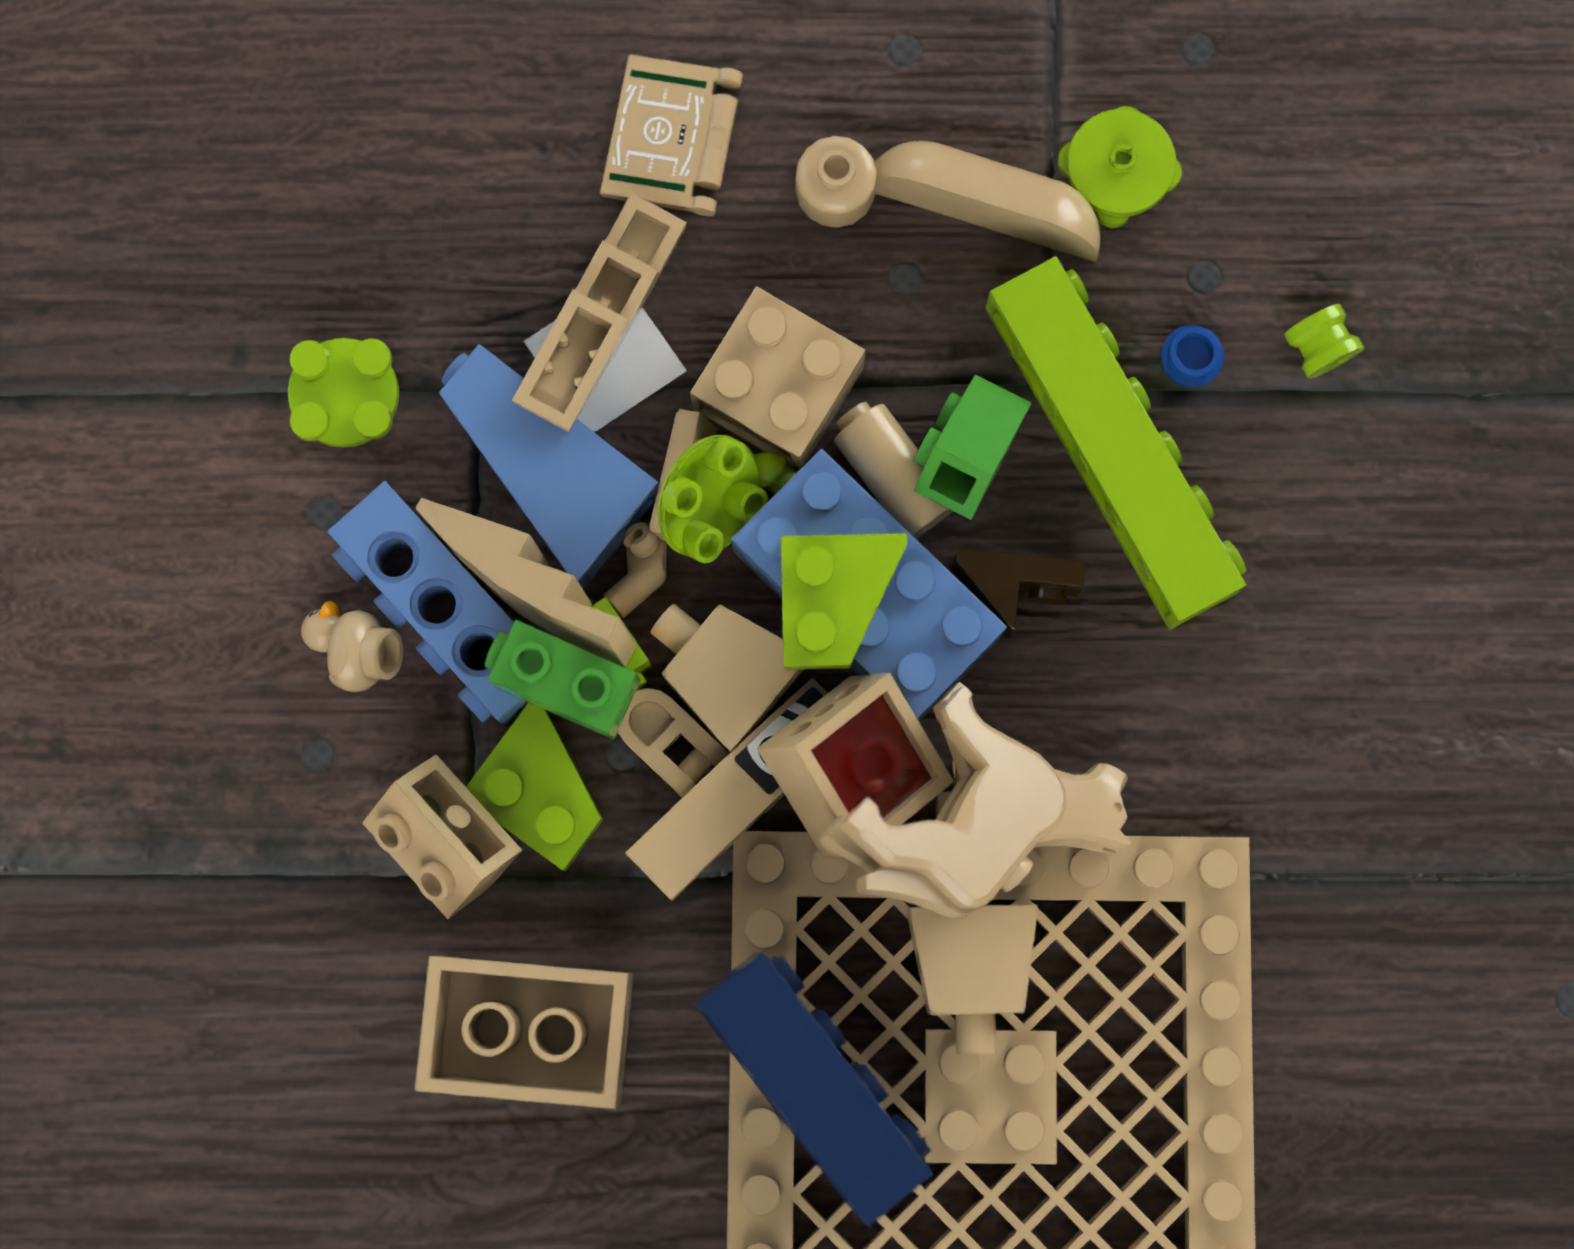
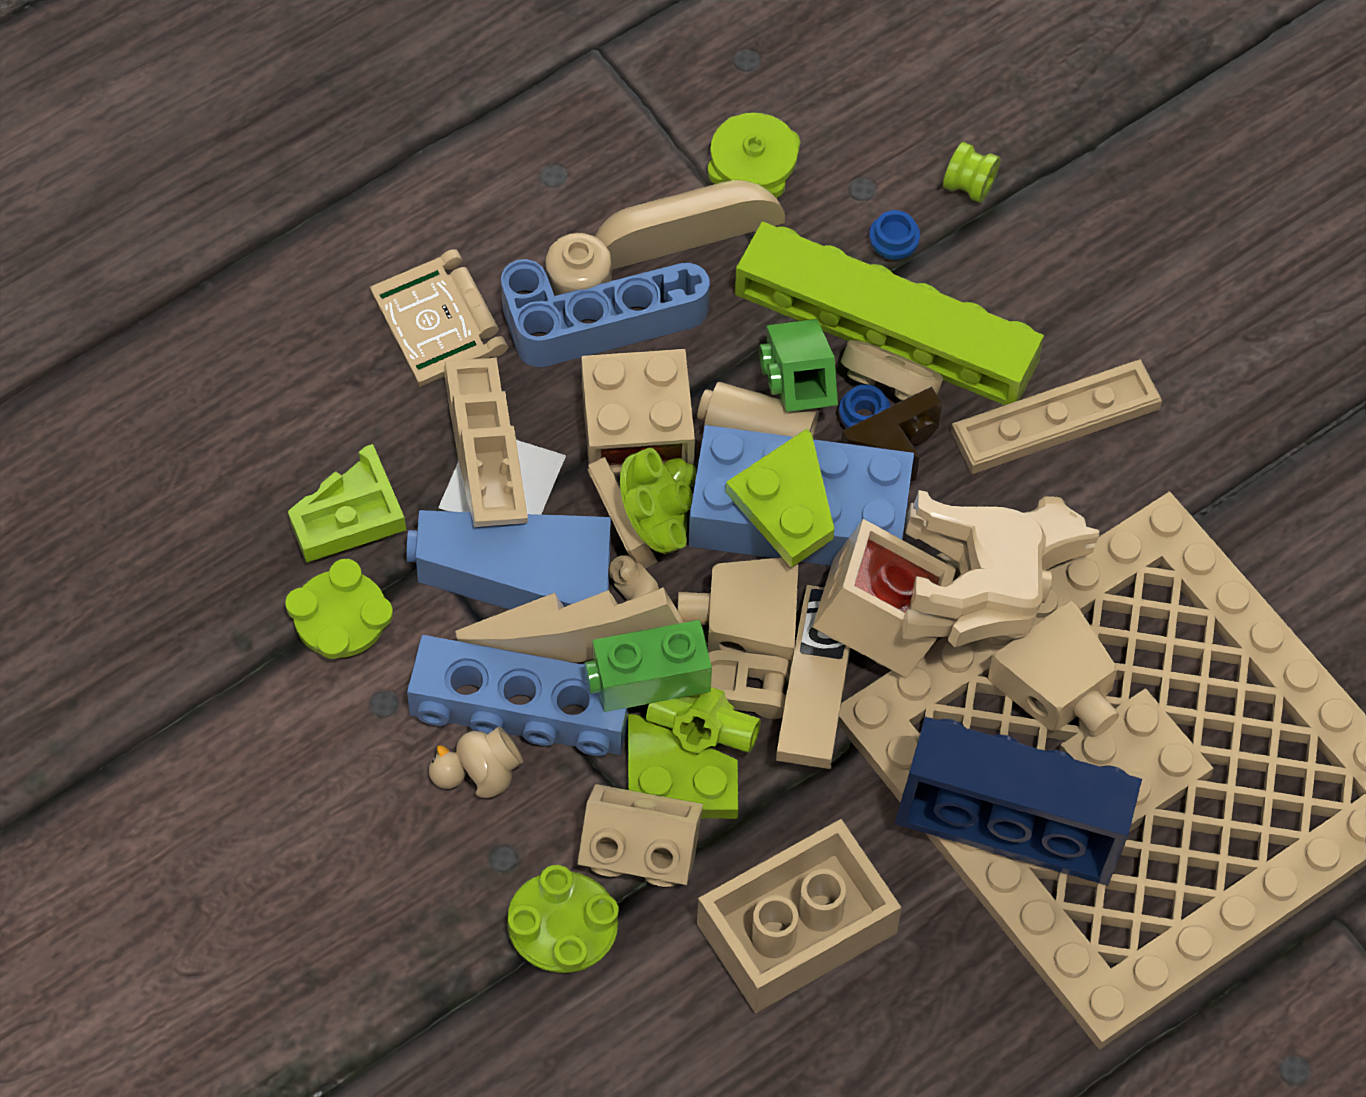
camera: 40 degrees left, 20 degrees down
(315, 864) = (562, 921): none -> lime dish
(428, 287) = (347, 510): none -> lime wing
(594, 765) = (719, 725): none -> lime axle
(841, 236) = (680, 287): none -> medium blue beam
(1012, 511) = (859, 398): none -> blue plate
(1069, 507) = (872, 364): none -> tan plate
(1203, 670) = (1055, 416): none -> tan tile

